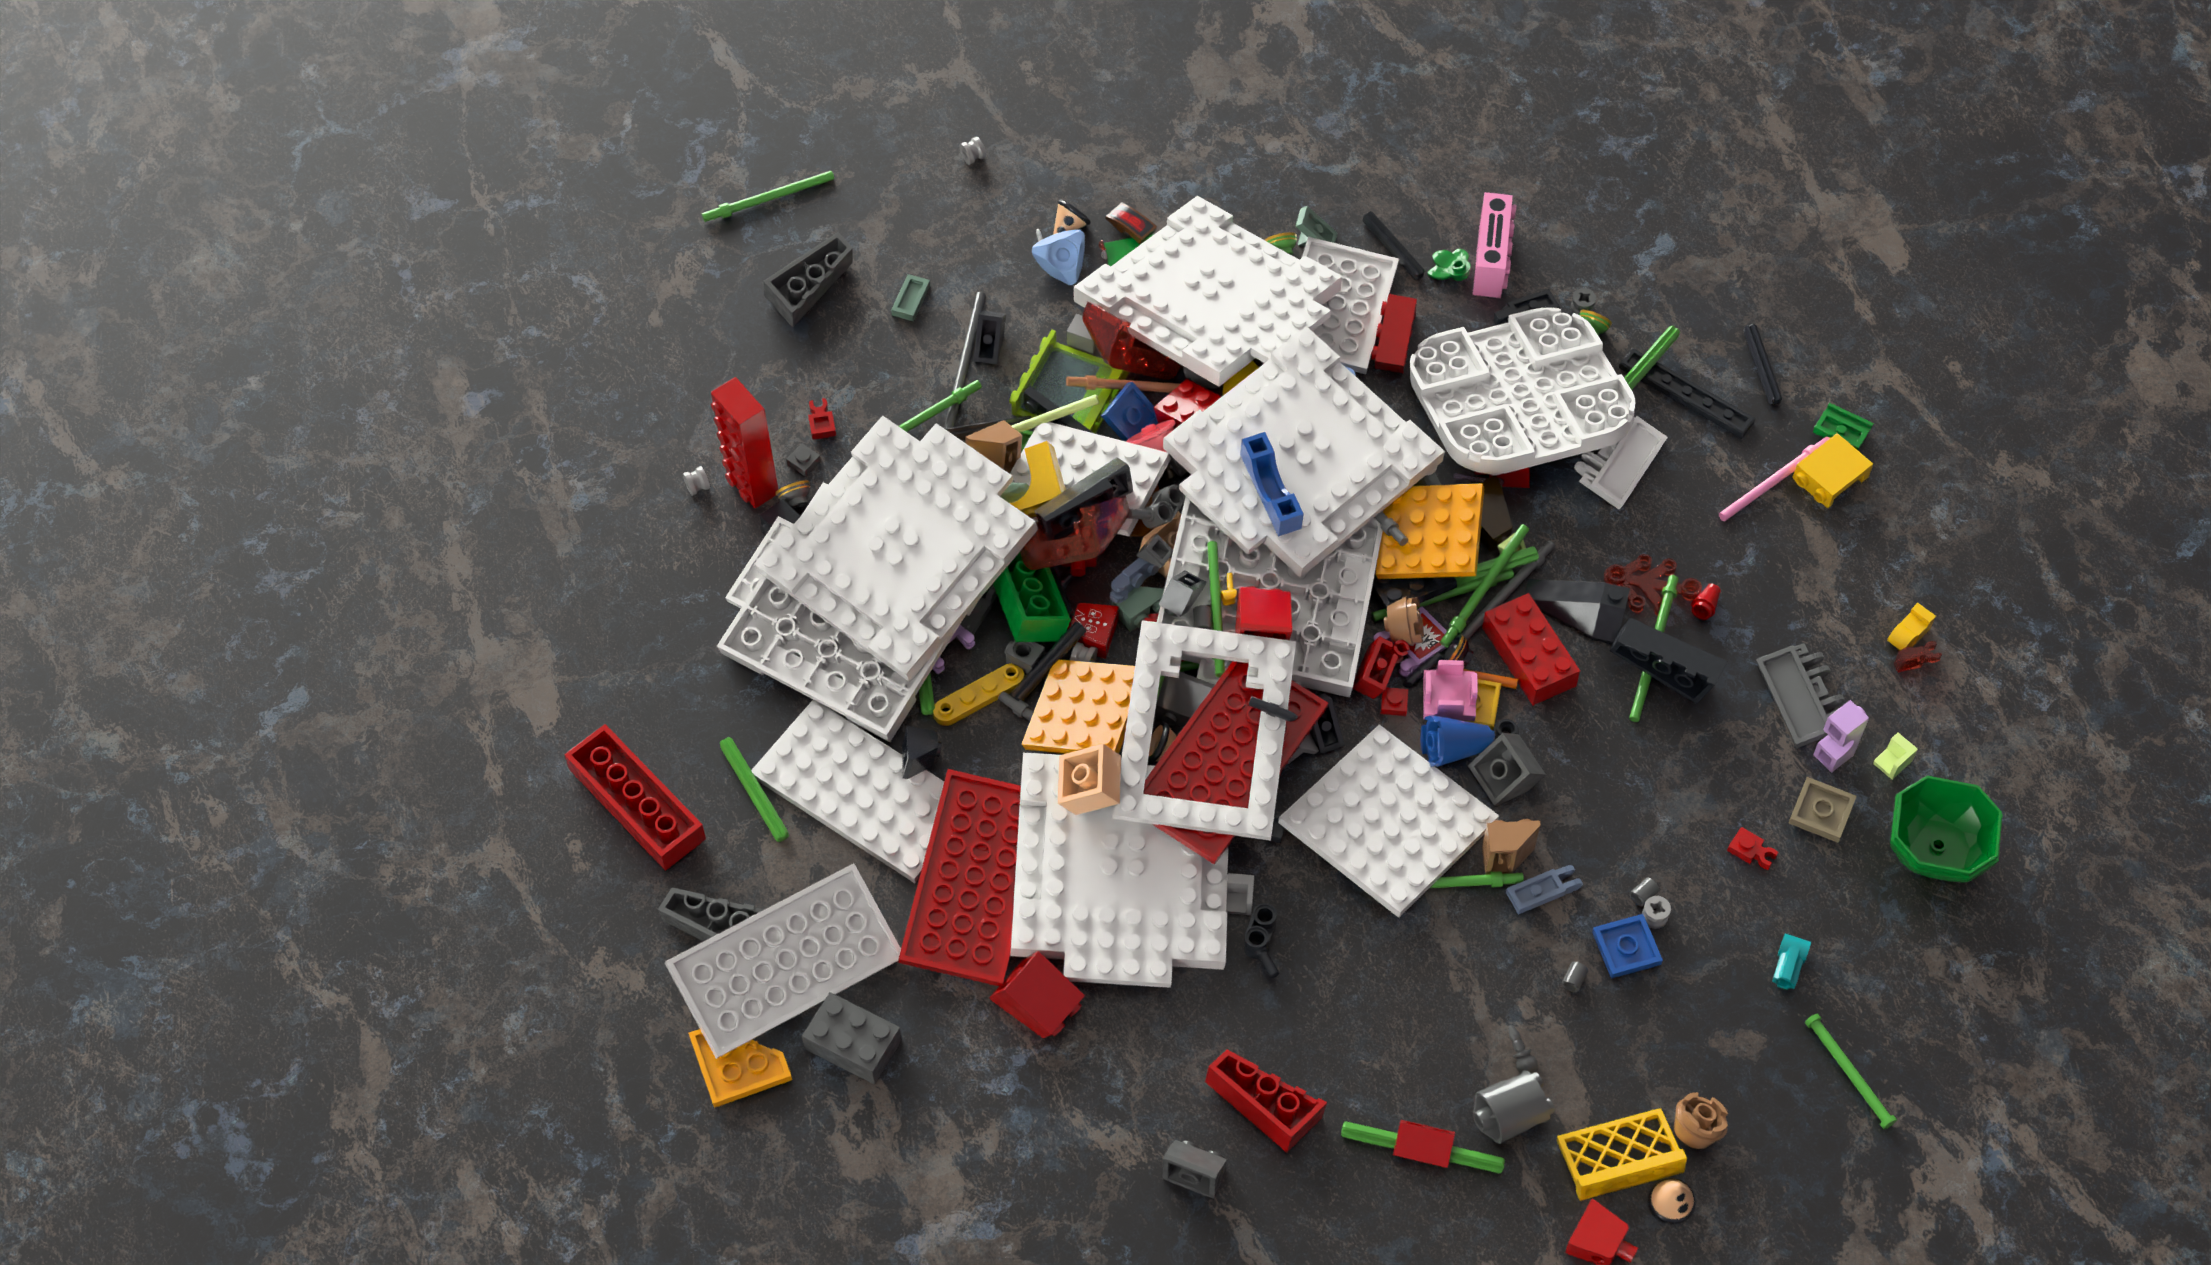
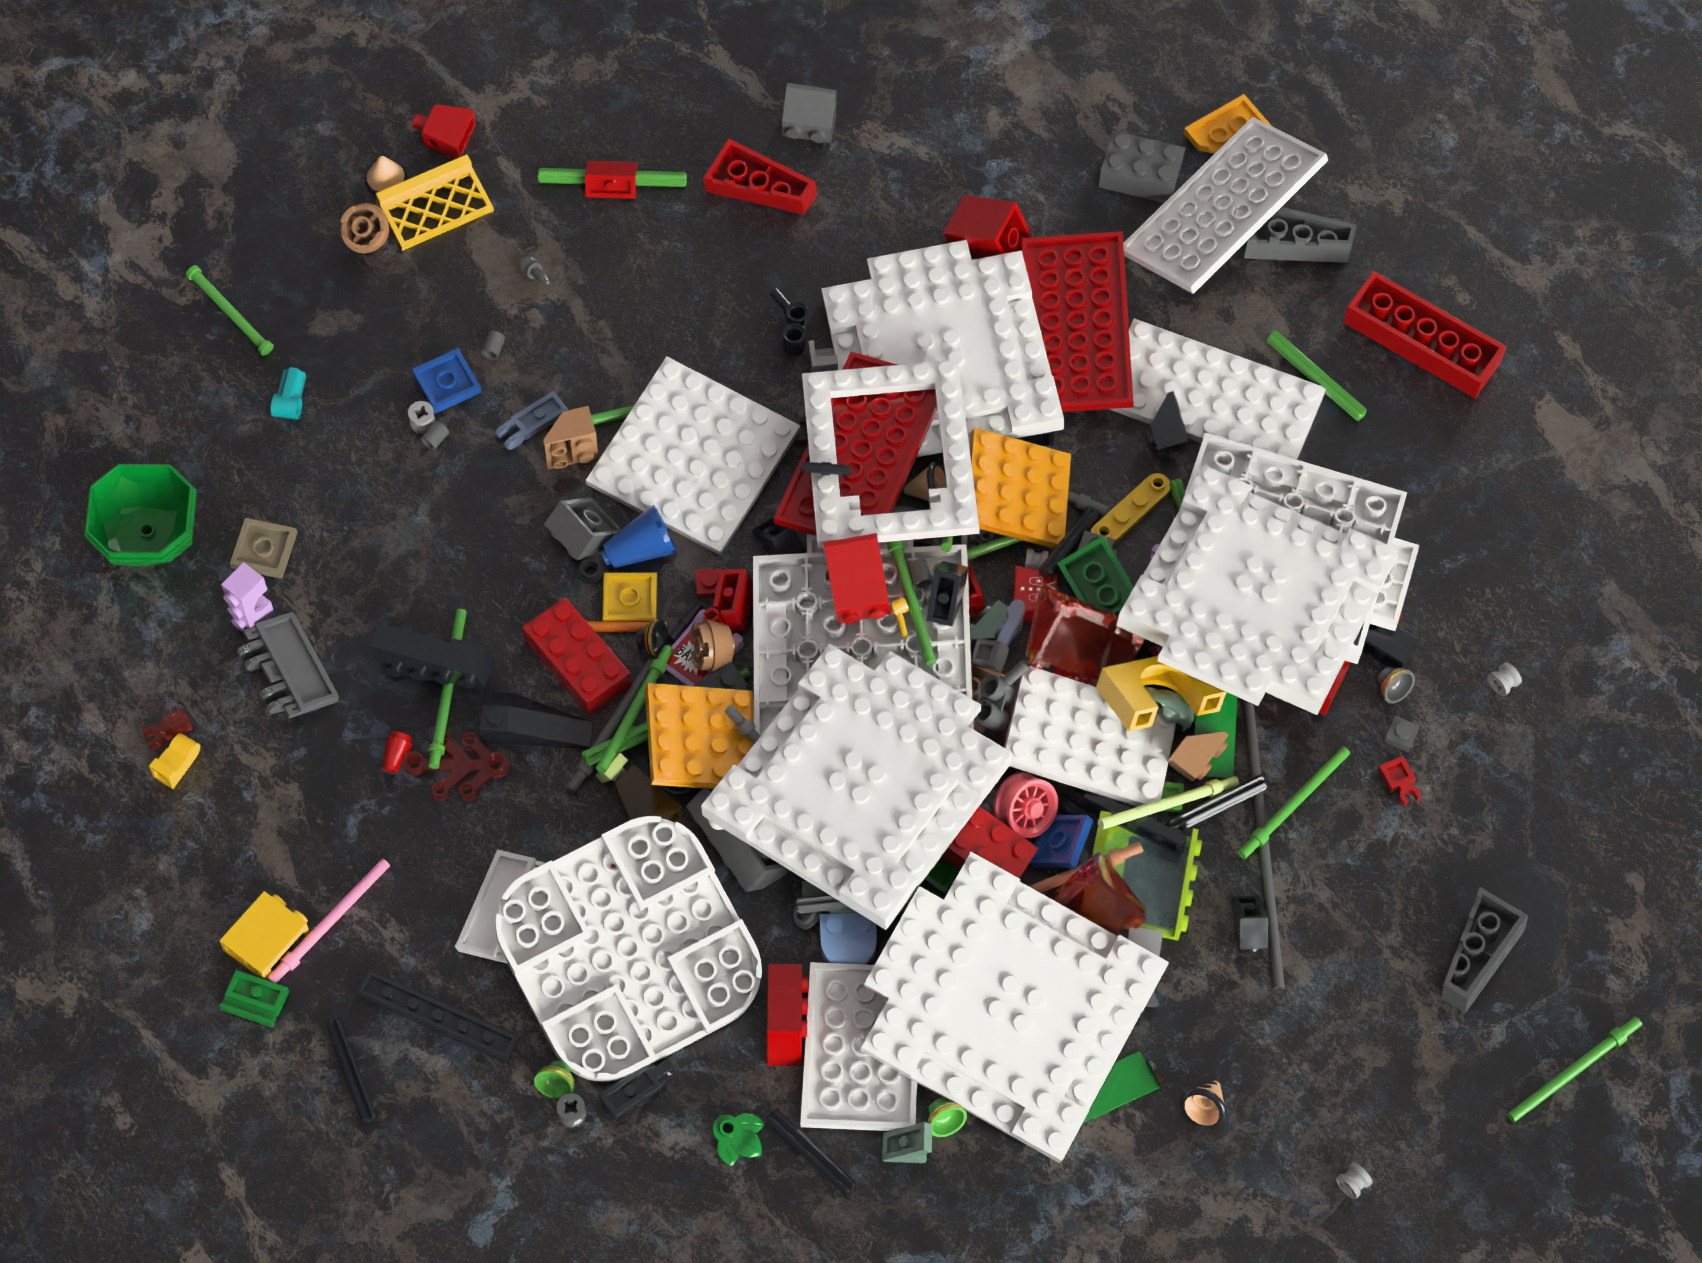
camera: 165 degrees right, 5 degrees up
(744, 442) = (1459, 662): red brick -> none
(910, 297) = (1357, 963): sand green tile -> none
(1061, 254) = (1203, 1045): light blue hat -> none
(1089, 779) = (989, 378): light nougat brick -> none
(1100, 486) = (1077, 663): black slope -> none
(1133, 222) = (1133, 1116): slope -> none
(1262, 467) = (865, 682): blue arch -> none
(1450, 691) = (654, 587): bright pink panel -> none
(1494, 245) = (689, 1148): bright pink brick -> none
(1512, 1107) = (536, 208): dark grey cylinder -> none
(1652, 356) = (485, 1038): bright green axle -> none
(1749, 847) = (335, 502): red plate -> none
(1896, 756) = (189, 616): yellowish green panel -> none

